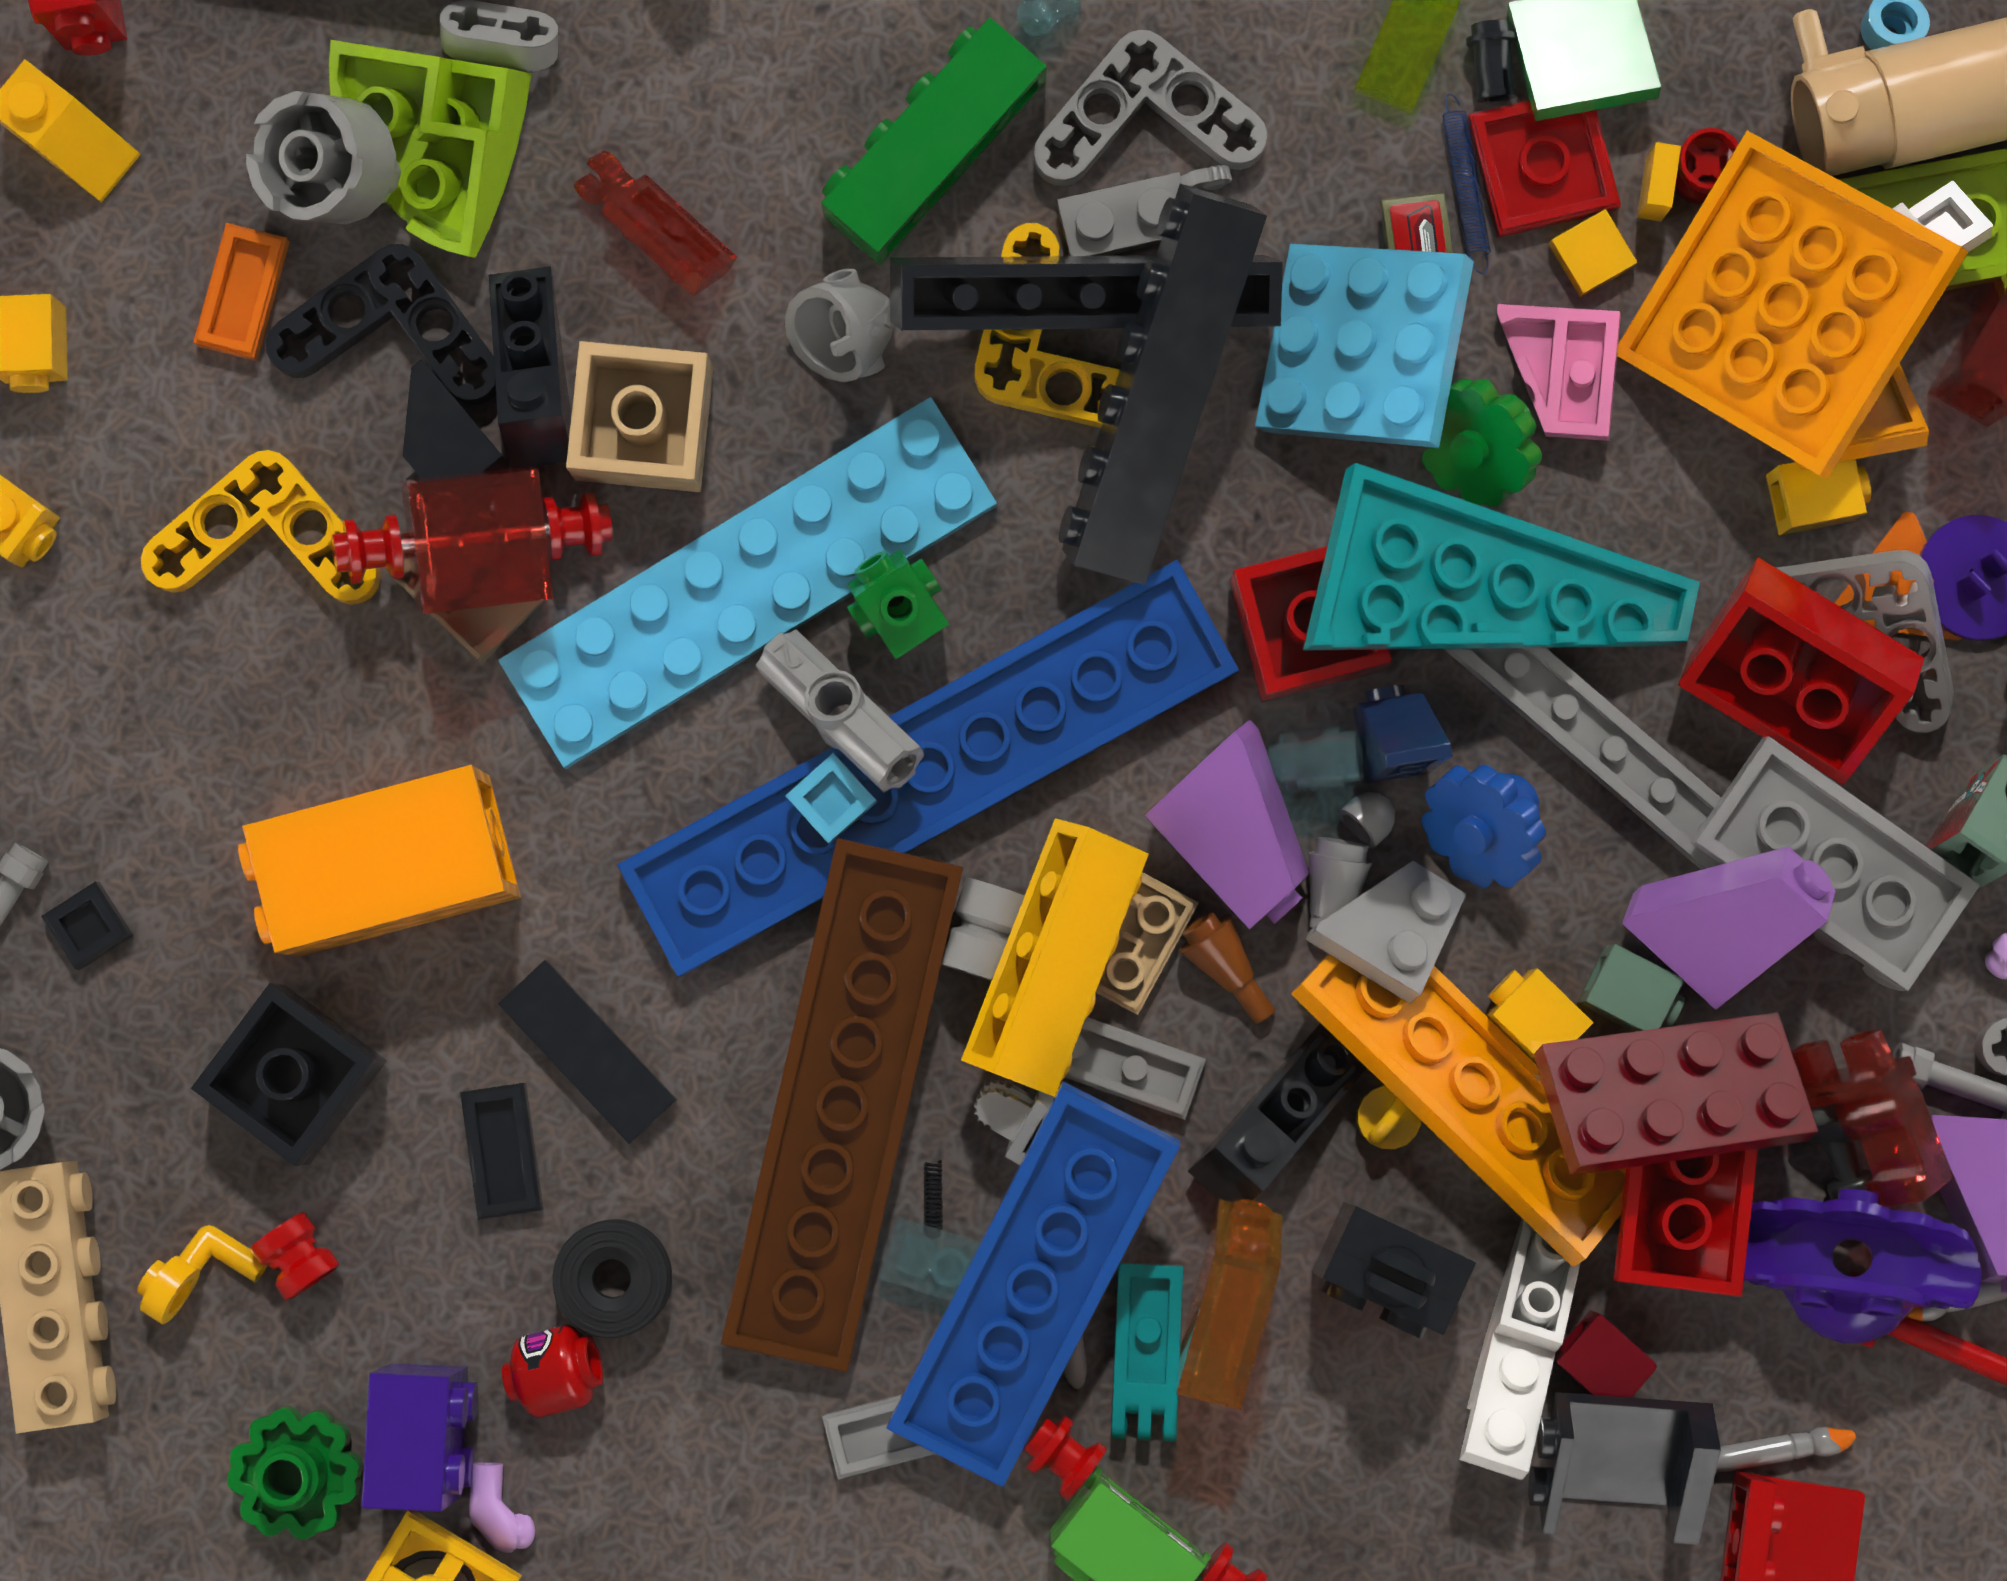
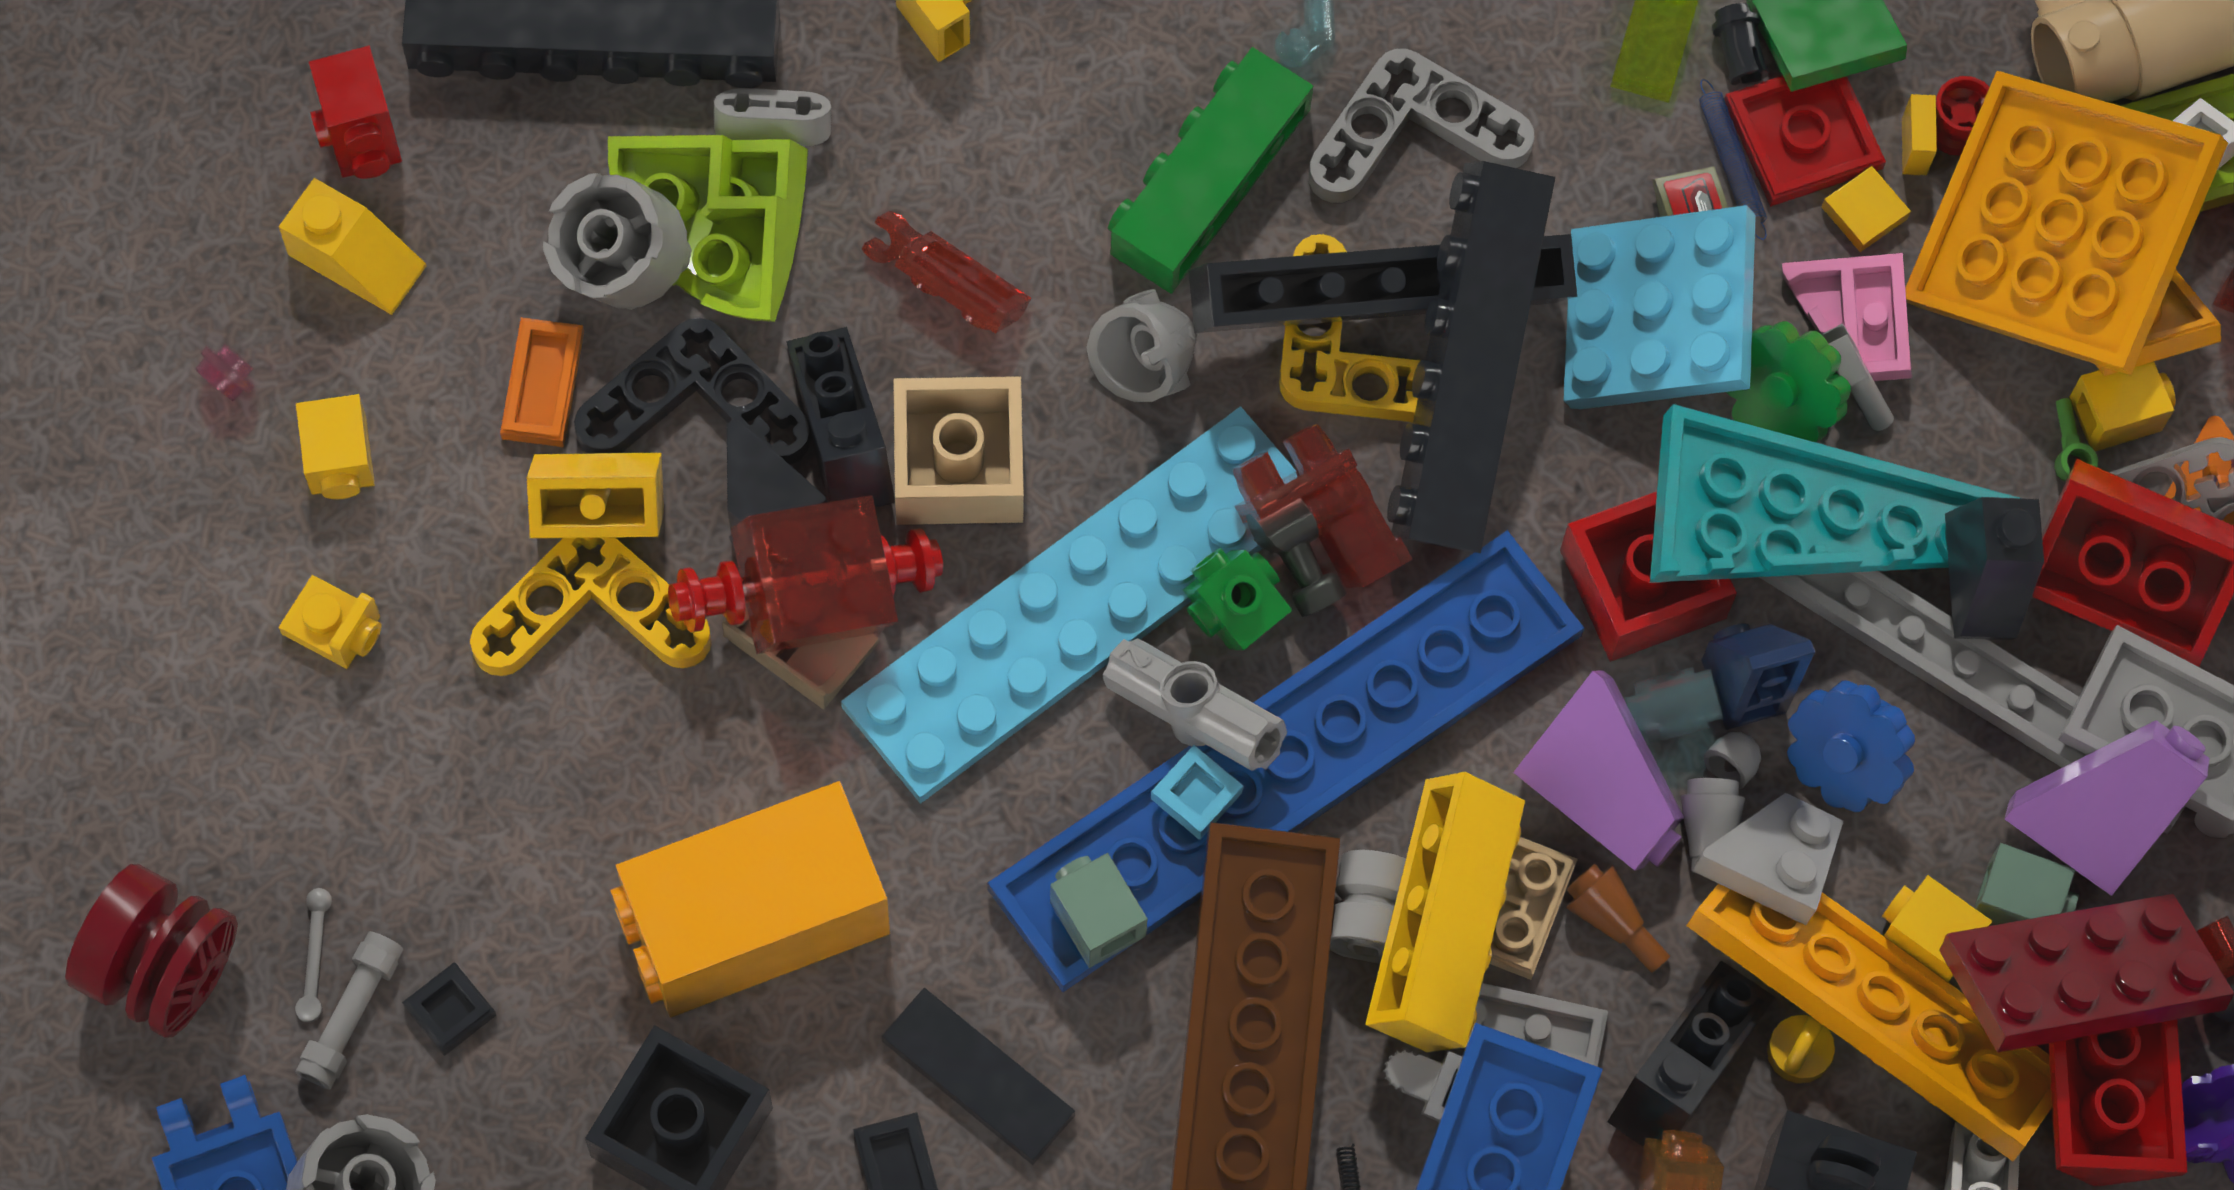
camera: 10 degrees left, 15 degrees down
(275, 424) = (595, 495): none -> yellow brick
(715, 909) = (1097, 908): none -> sand green brick
(983, 513) = (1320, 501): none -> clear red hips
(1127, 214) = (1401, 219): light grey hinge -> none
(1551, 438) = (1862, 384): none -> light grey bar
(1654, 660) = (1993, 565): none -> black slope
(1759, 525) = (2070, 441): none -> bright green hand

